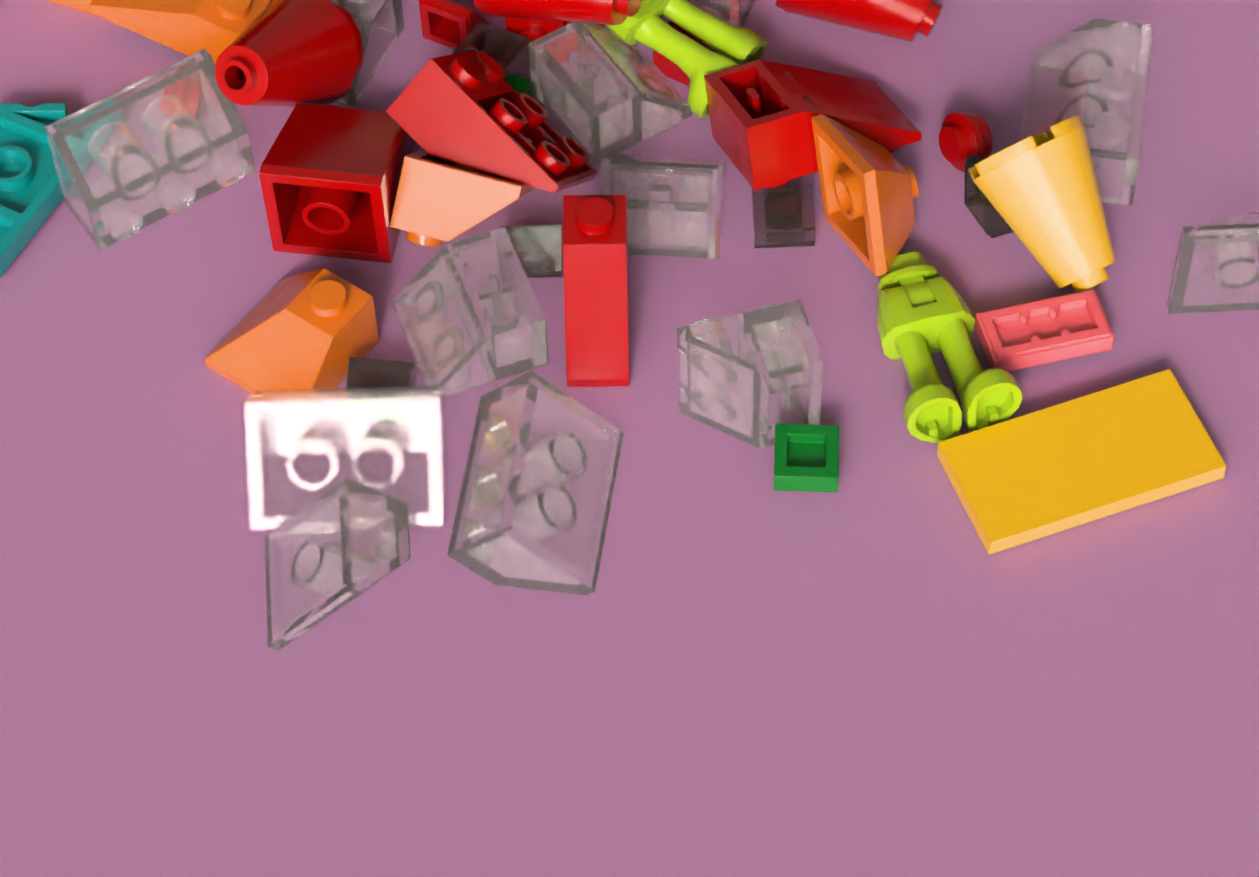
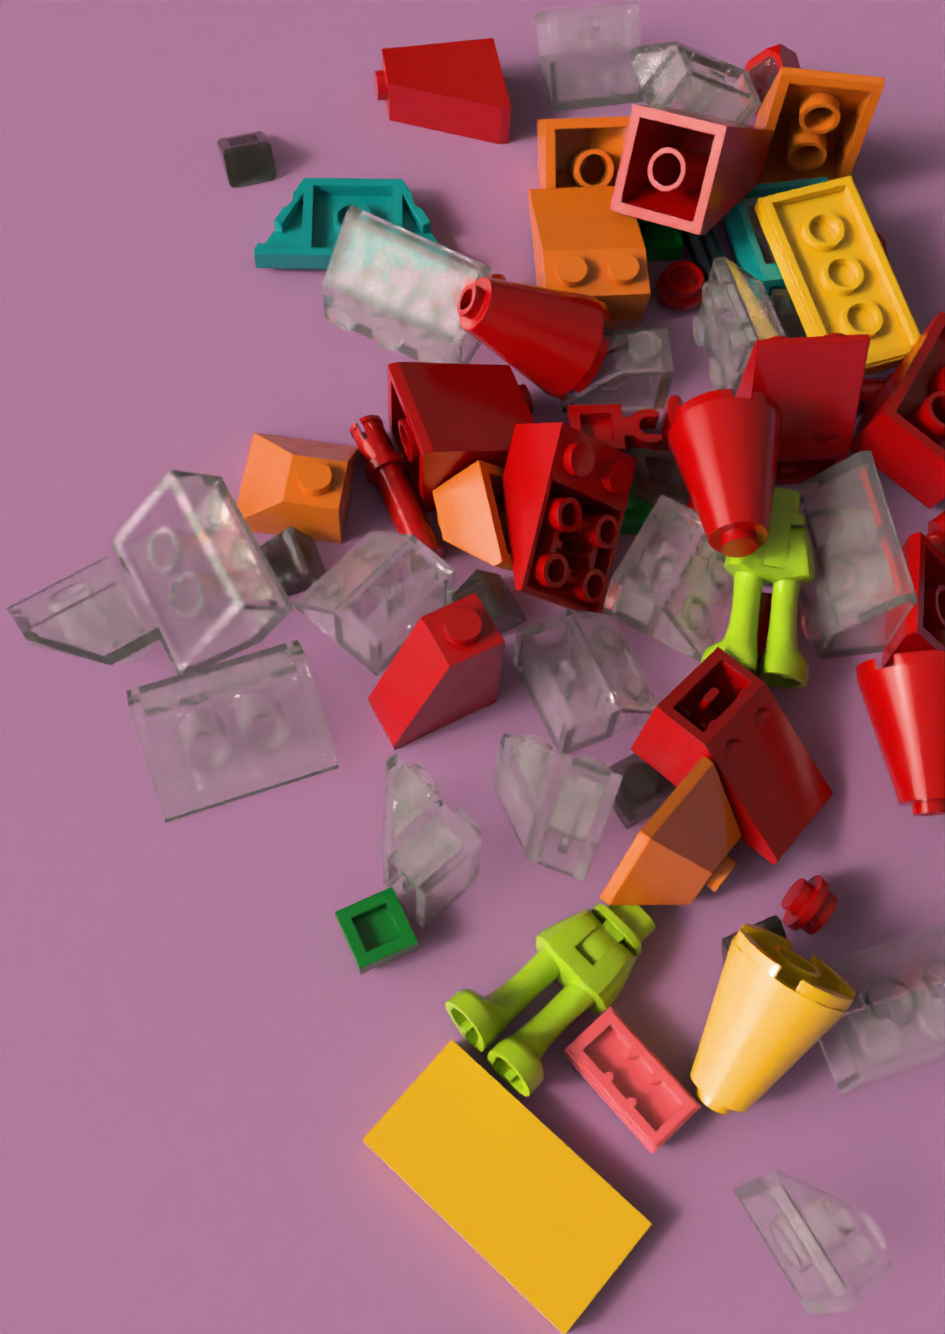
camera: 55 degrees right, 10 degrees up
(346, 261) = (386, 471): none -> red pin
(402, 66) = (608, 426): none -> red plate
(778, 254) = (554, 802): none -> clear slope

